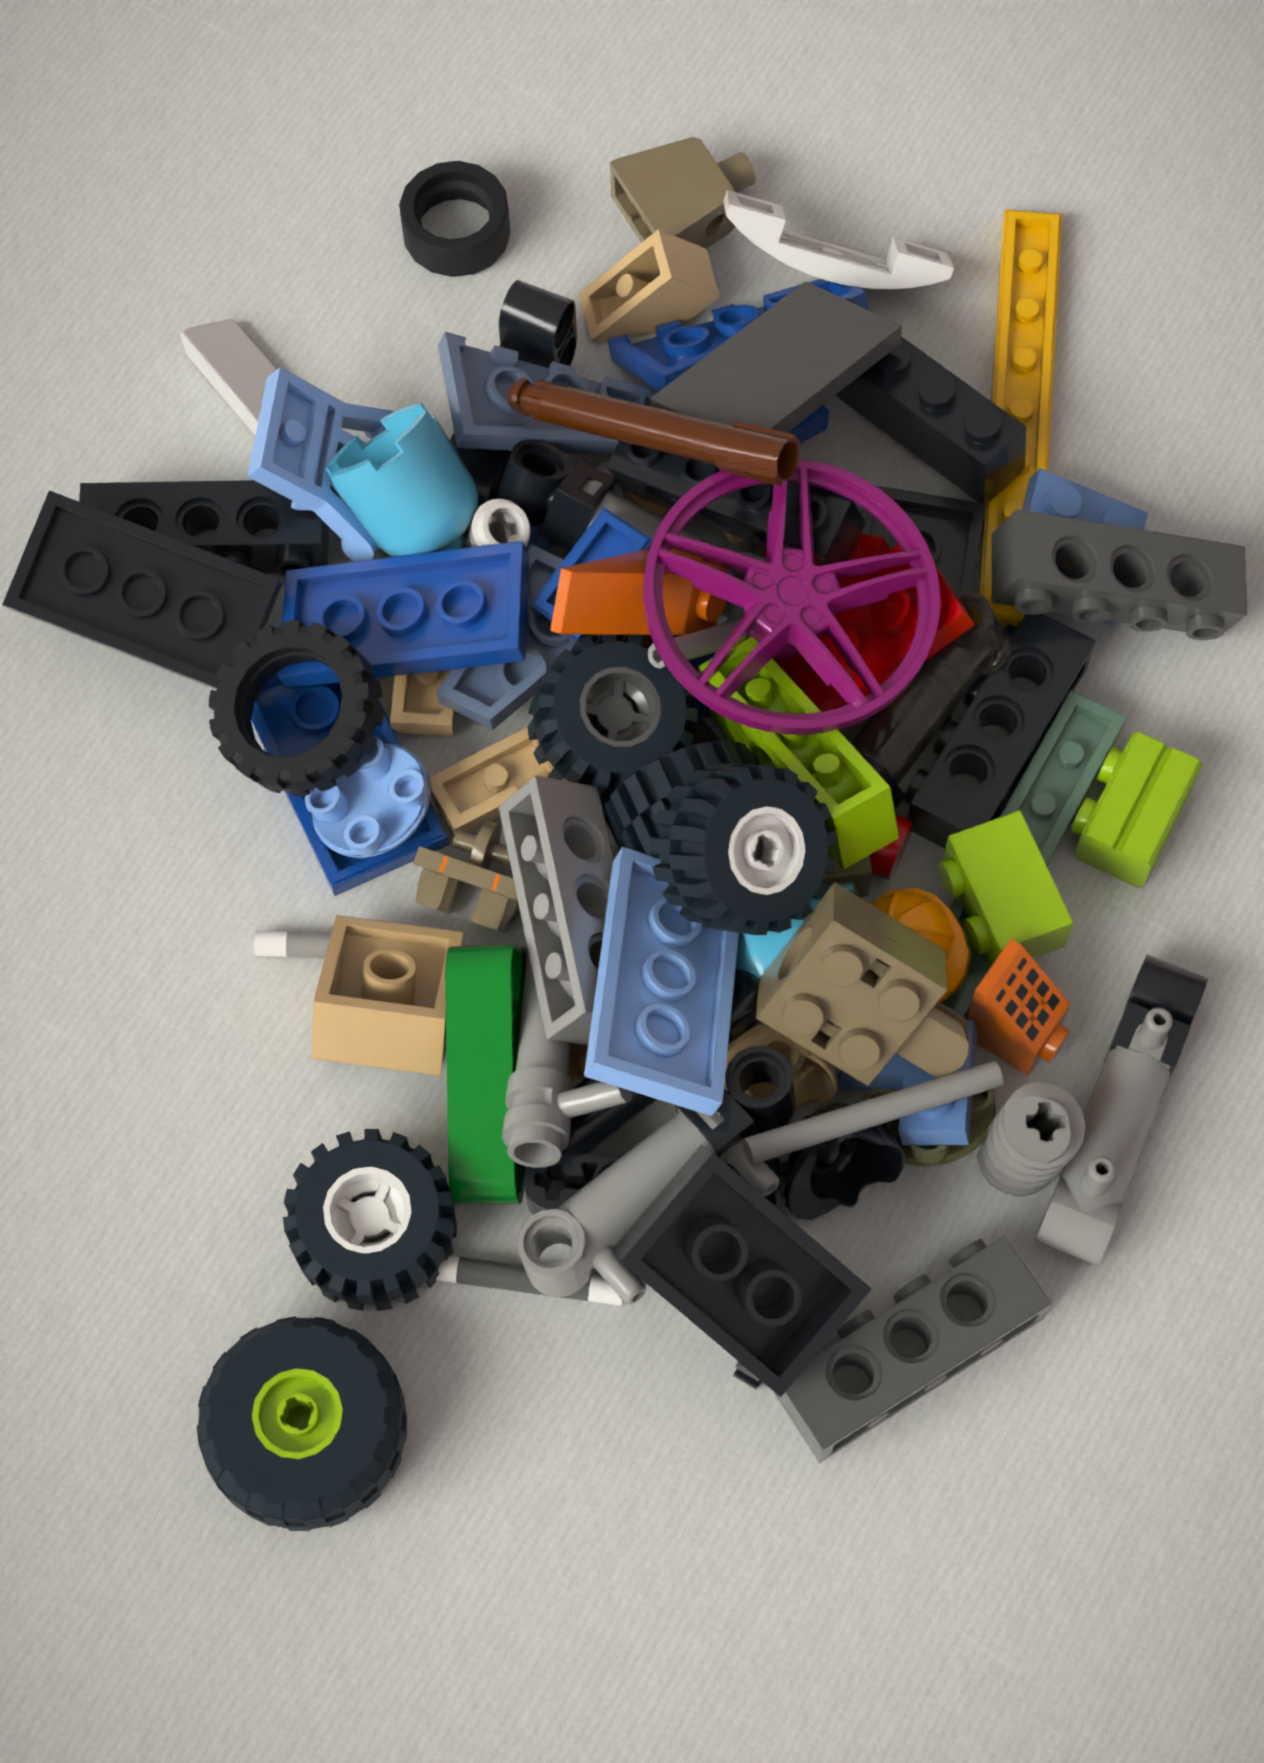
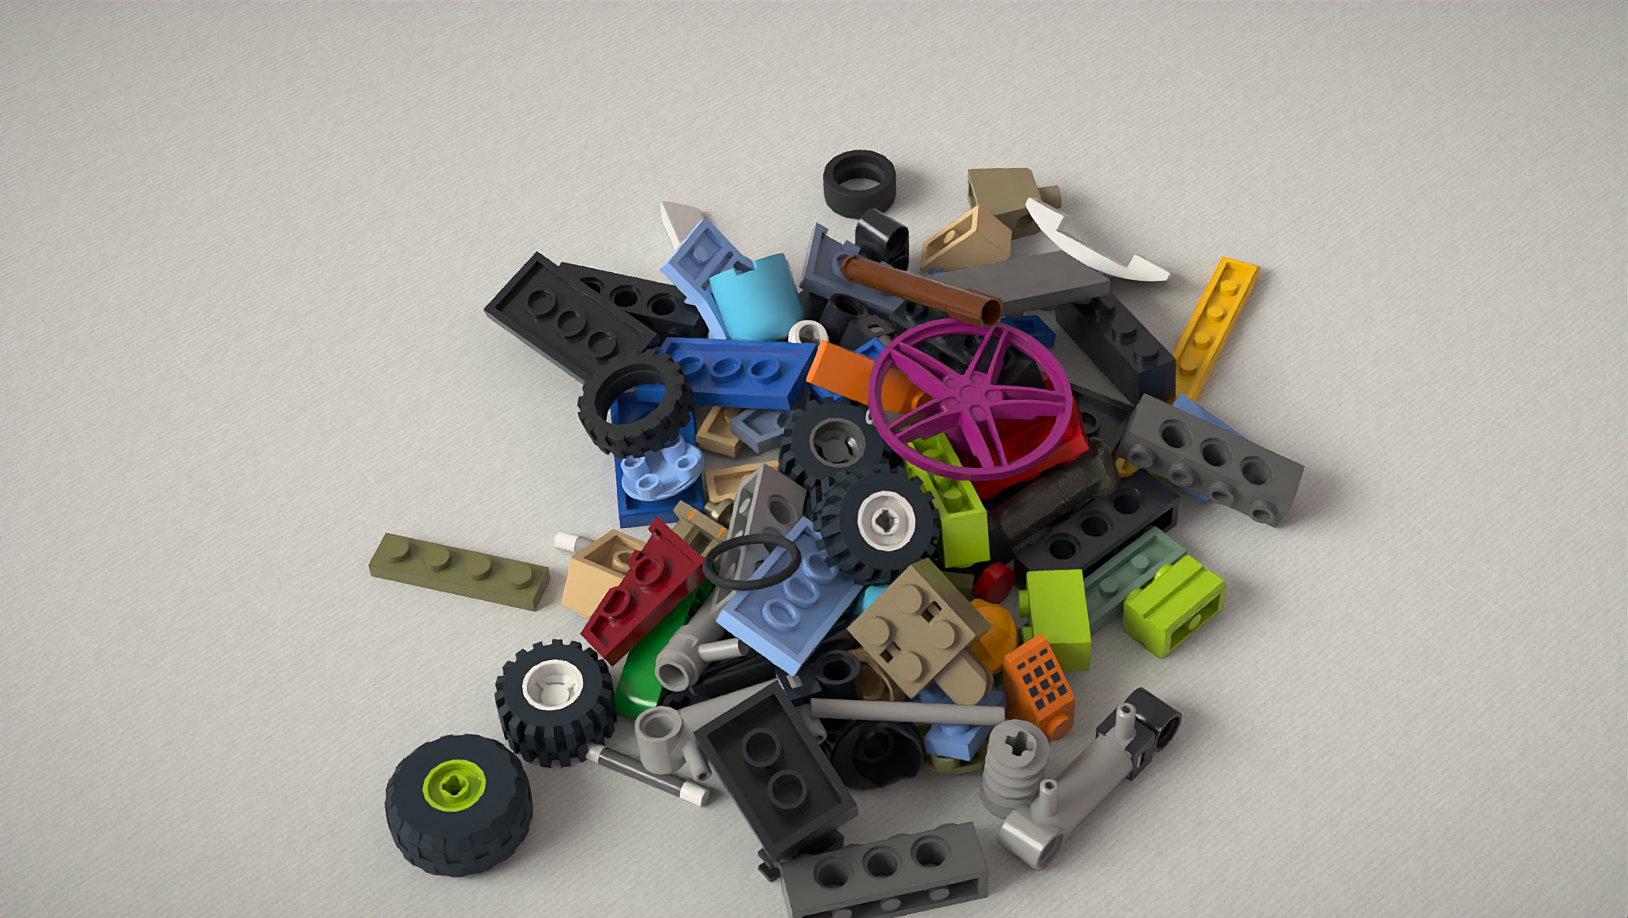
camera: 20 degrees right, 20 degrees down
(136, 1039) = (459, 571): none -> olive plate
(450, 1029) = (649, 591): none -> dark red wing
(603, 1012) = (742, 585): none -> black tyre

